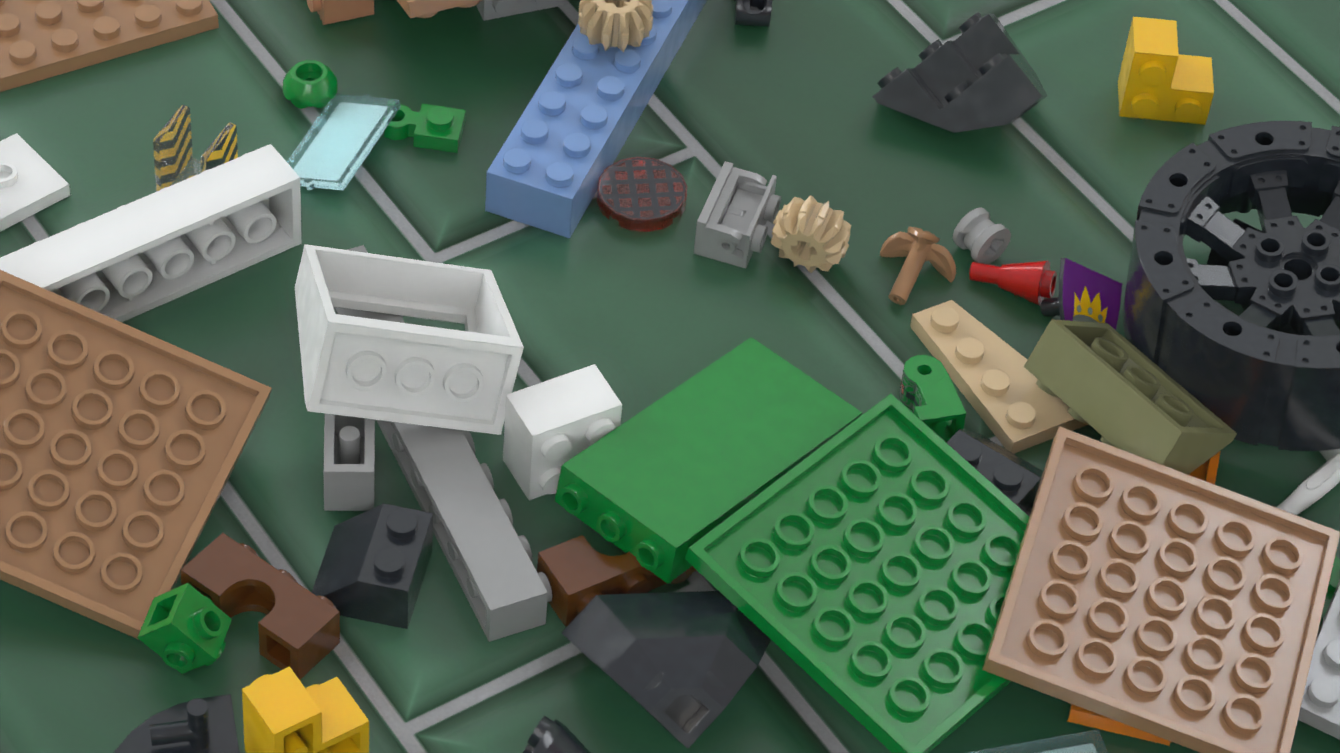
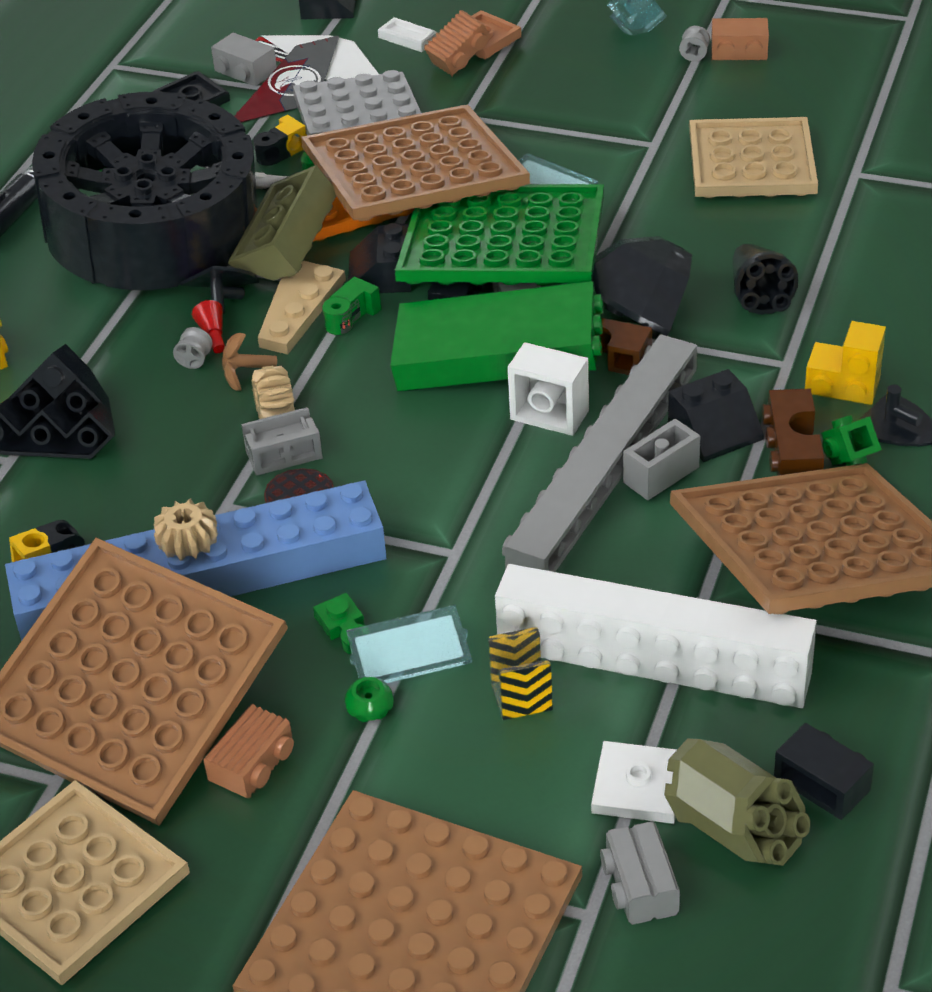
camera: 120 degrees left, 5 degrees down
(398, 367) = (550, 413): white windscreen -> none

